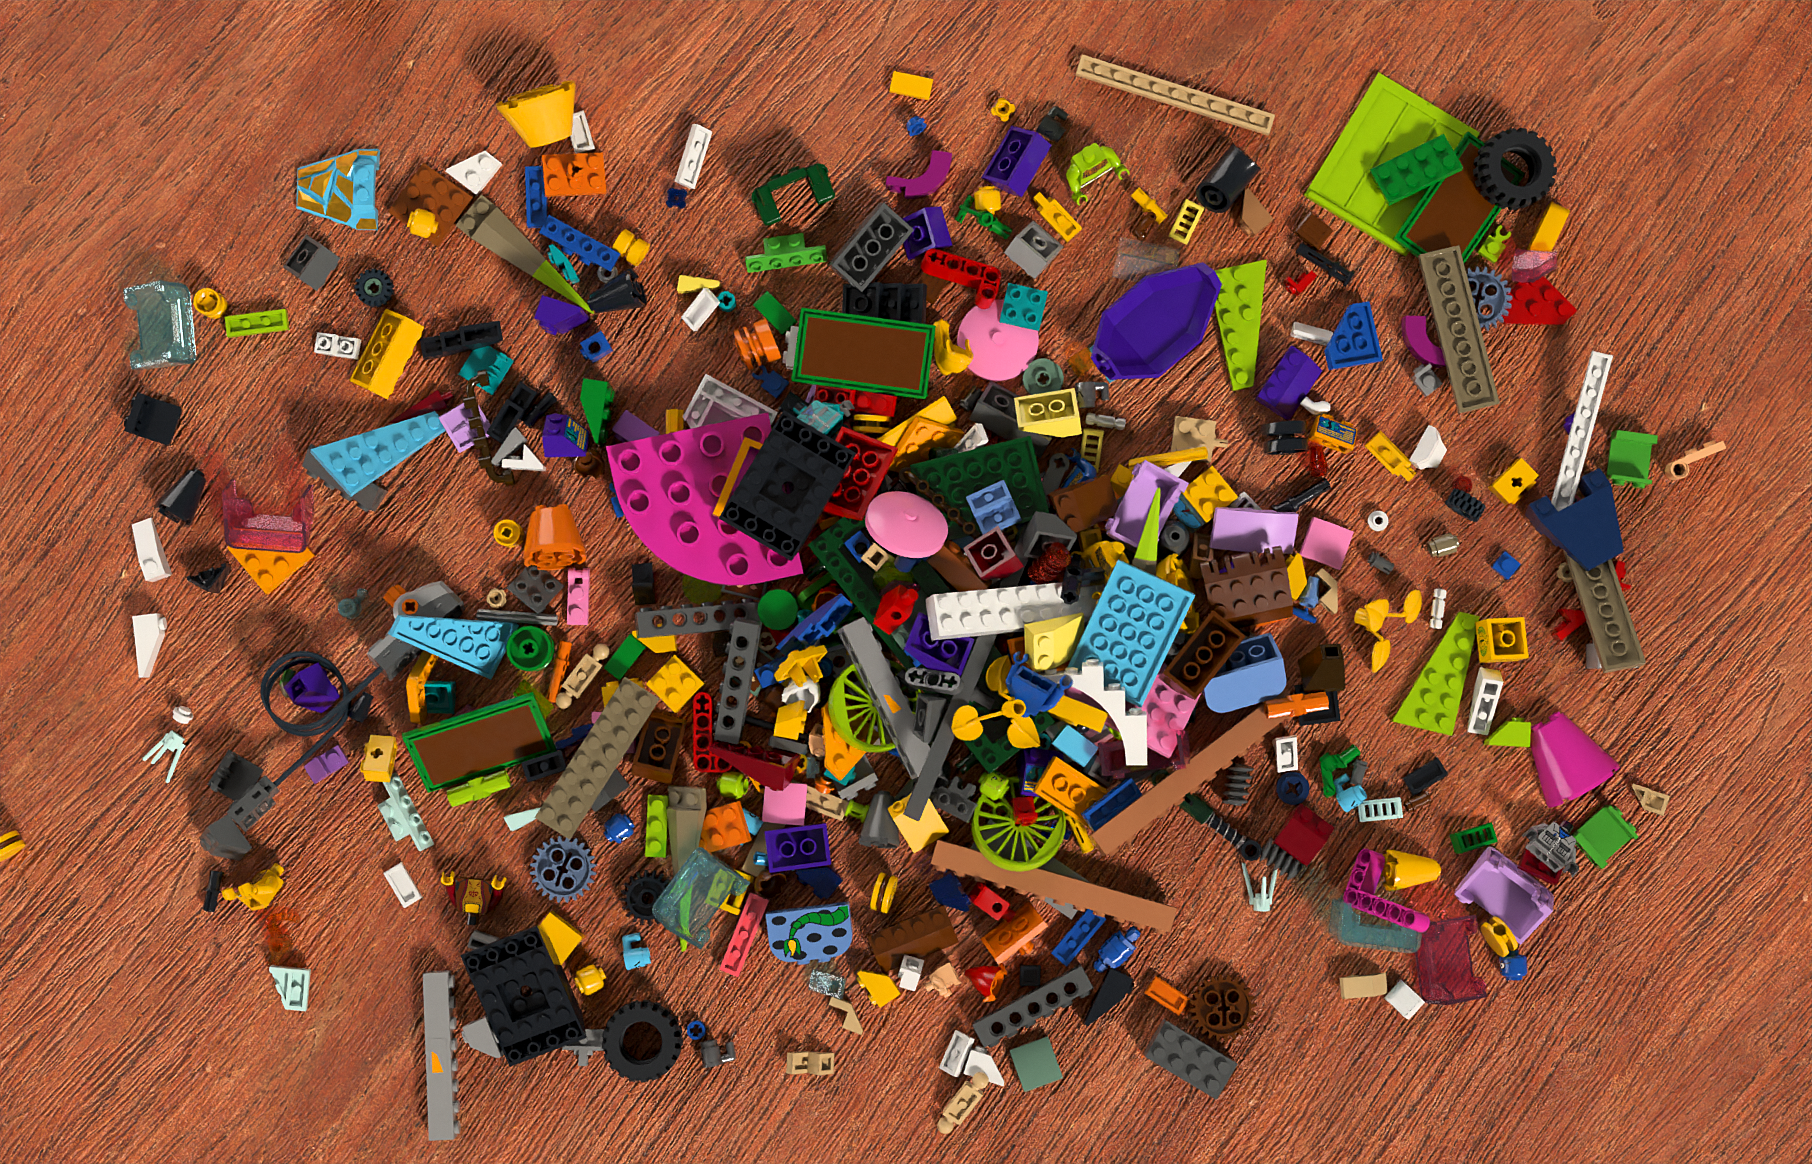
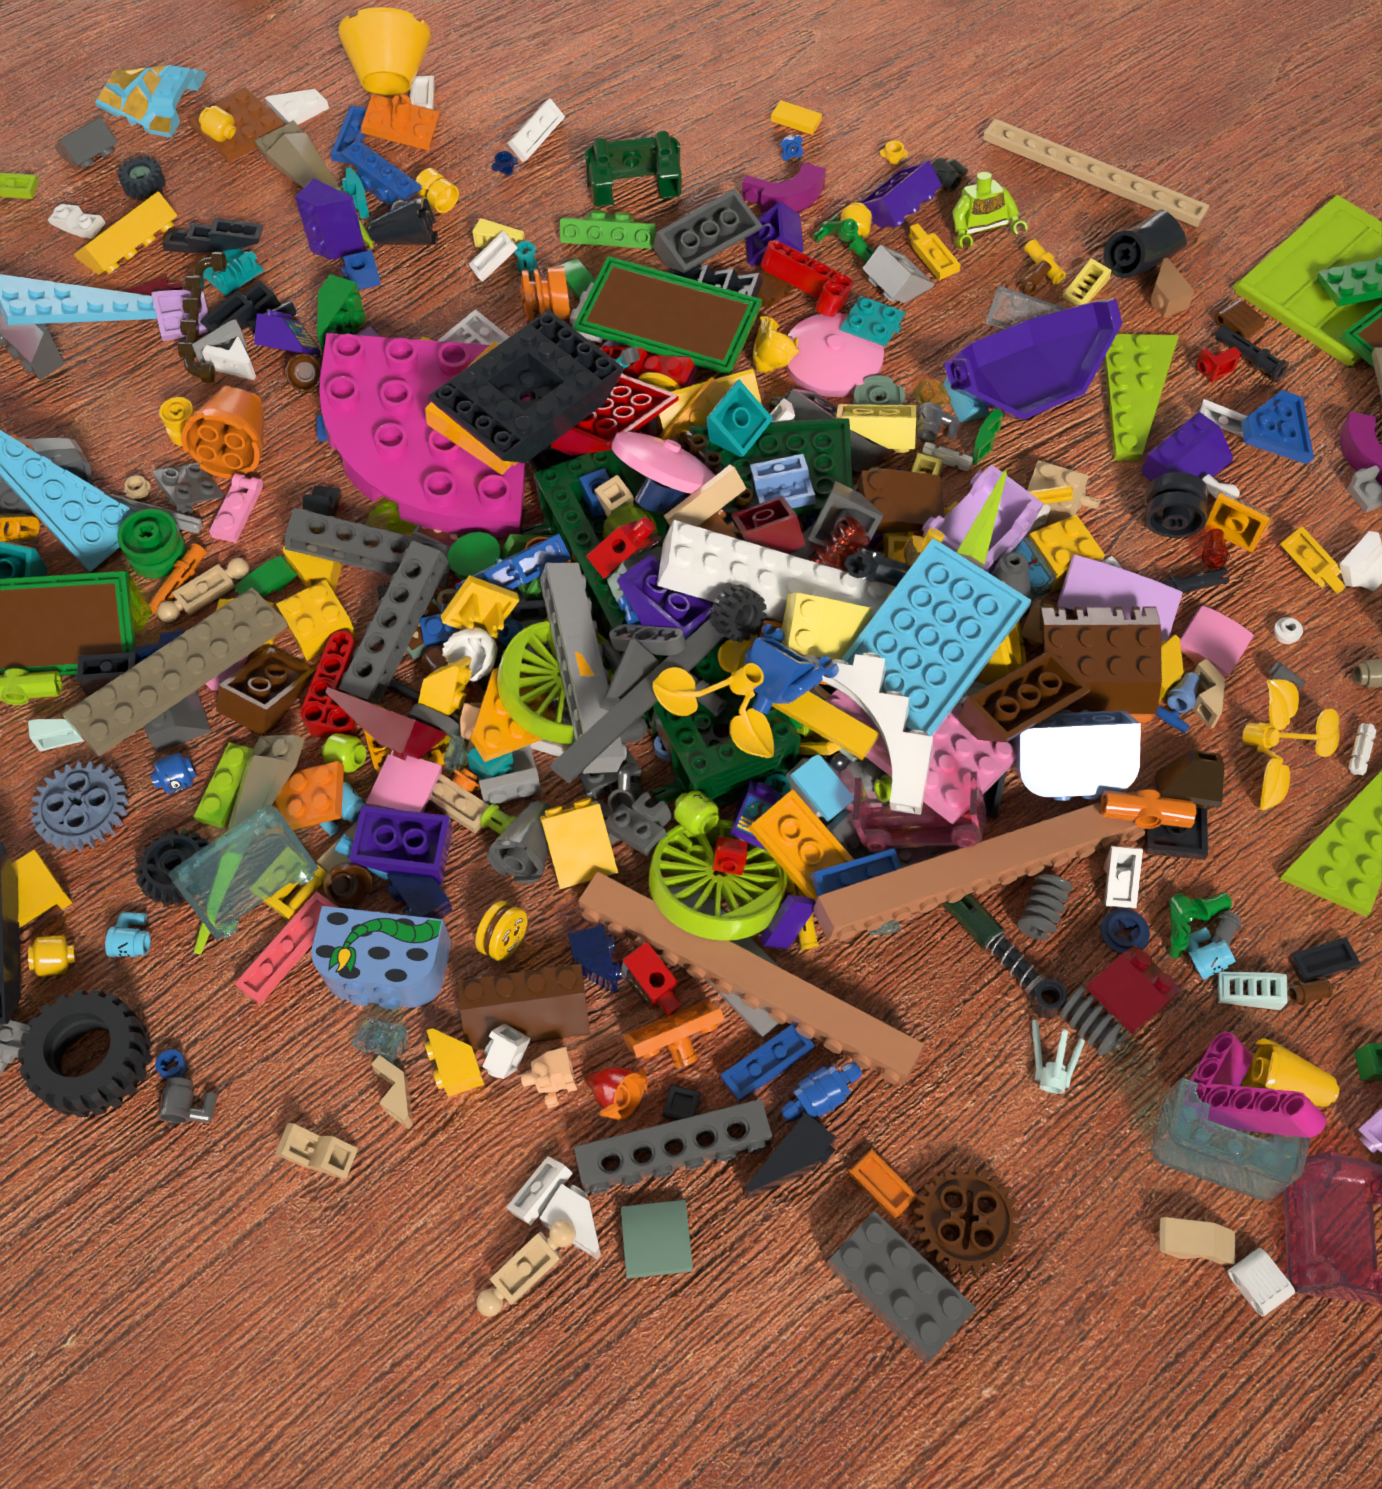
camera: 15 degrees right, 25 degrees down
(945, 554) = (708, 498): none -> tan tile
(949, 461) = (737, 420): none -> teal slope
(994, 651) = (728, 607): none -> black tyre
(1072, 842) = (788, 922): none -> dark purple tile
(1131, 403) = (986, 435): none -> green slope

